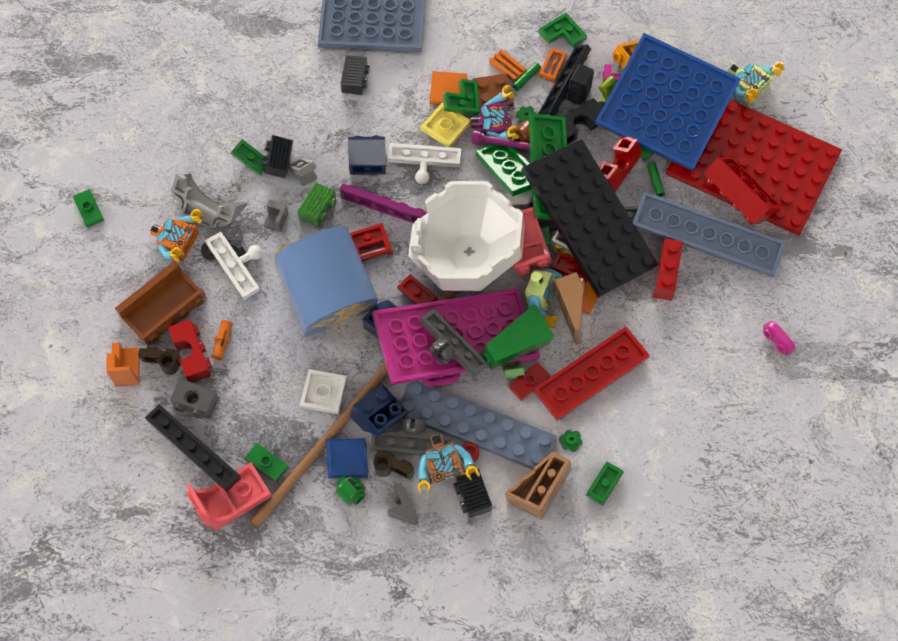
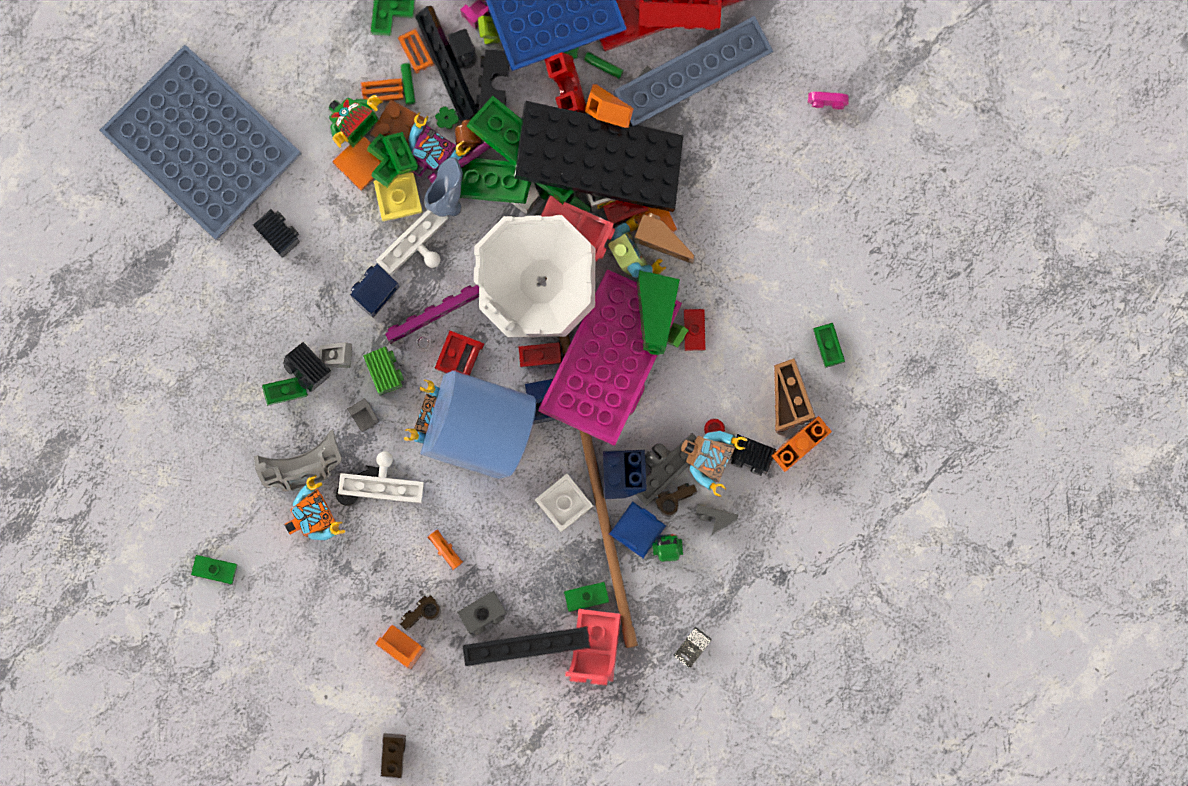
camera: 45 degrees left, 15 degrees up
(39, 418) = (393, 755): none -> dark brown plate
(160, 303) = (368, 575): dark orange panel -> none
(195, 365) = (417, 576): red arch -> none
(288, 569) = (692, 647): none -> clear smoke bracket
(451, 344) = (620, 369): dark grey plate -> none
(470, 59) = (352, 119): none -> torso
(471, 146) = (445, 191): none -> sand blue hair
(474, 99) = (400, 153): none -> green plate
(477, 425) = (697, 402): sand blue plate -> none
(511, 520) = (801, 443): none -> orange slope
(567, 443) = (770, 345): green plant -> none
(591, 373) = (730, 274): red plate -> none
(628, 196) = (607, 107): none -> orange slope
(668, 269) = (691, 125): red arch -> none

